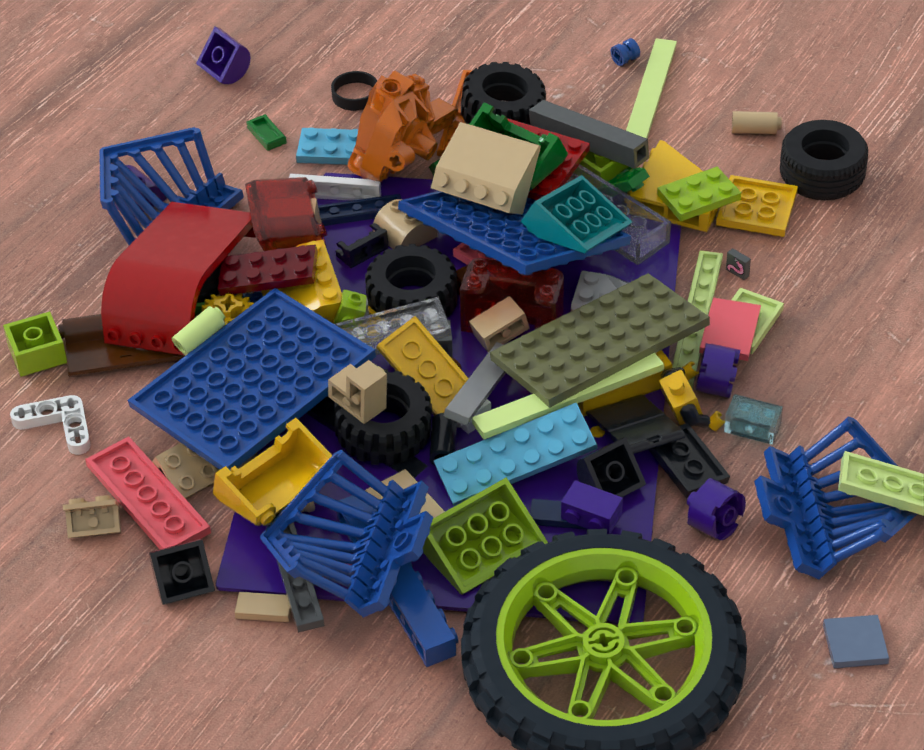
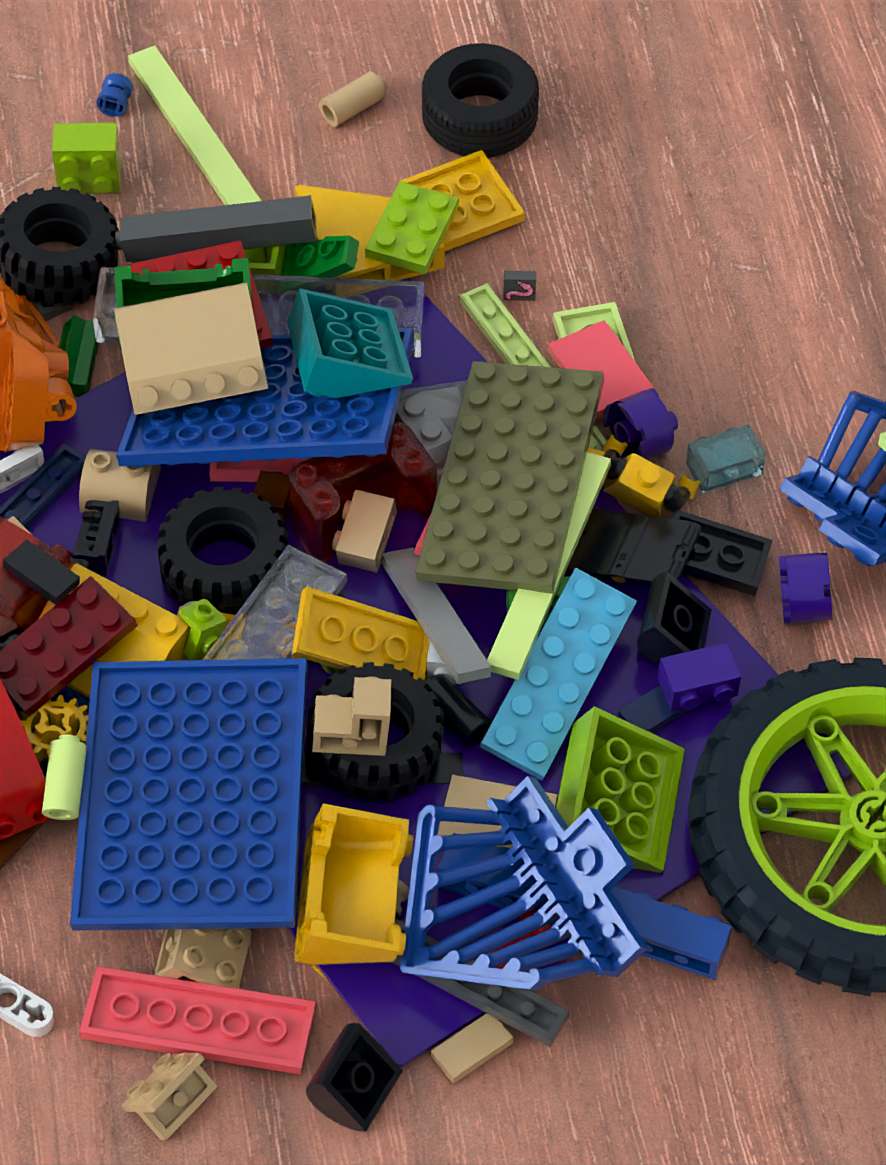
camera: 45 degrees left, 10 degrees up
(292, 226) = (41, 572): none -> black tile
(569, 69) = (87, 157): none -> lime brick

